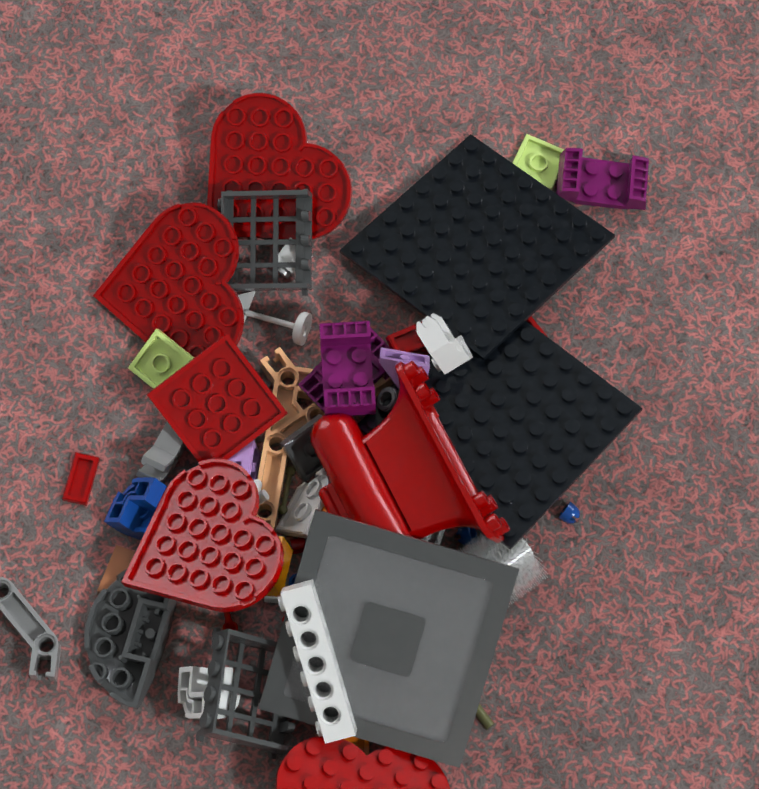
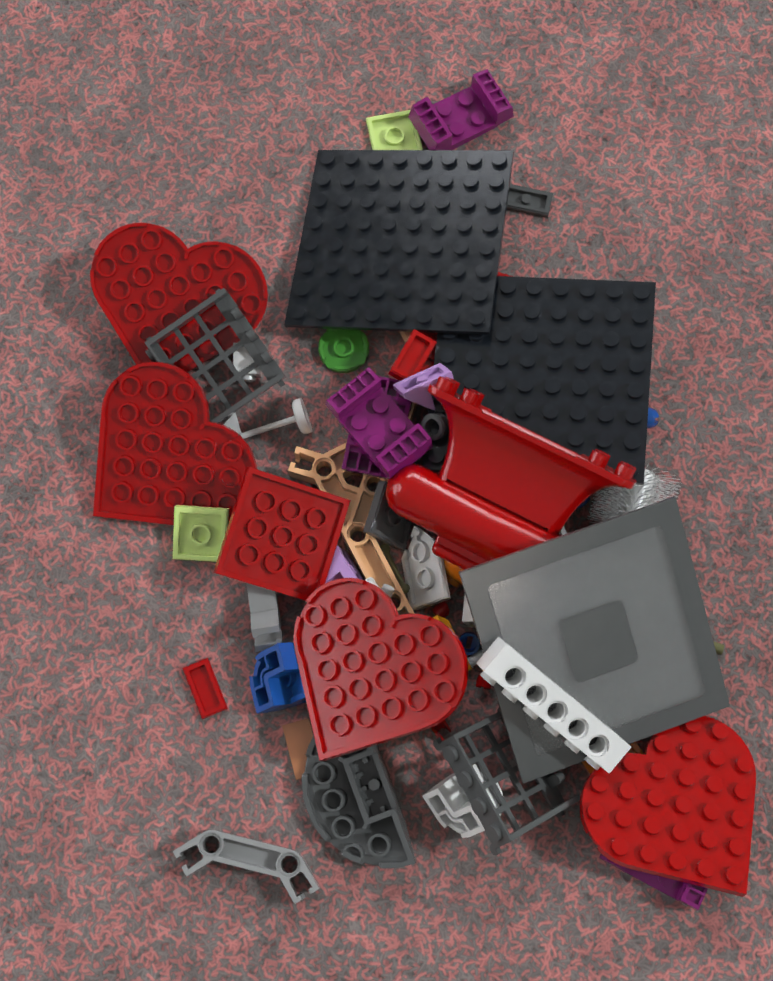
camera: 30 degrees left, 5 degrees up
(373, 308) = (343, 349): none -> bright green tile
(439, 341) = (456, 346): white piece -> none
(604, 281) = (529, 200): none -> dark grey tile

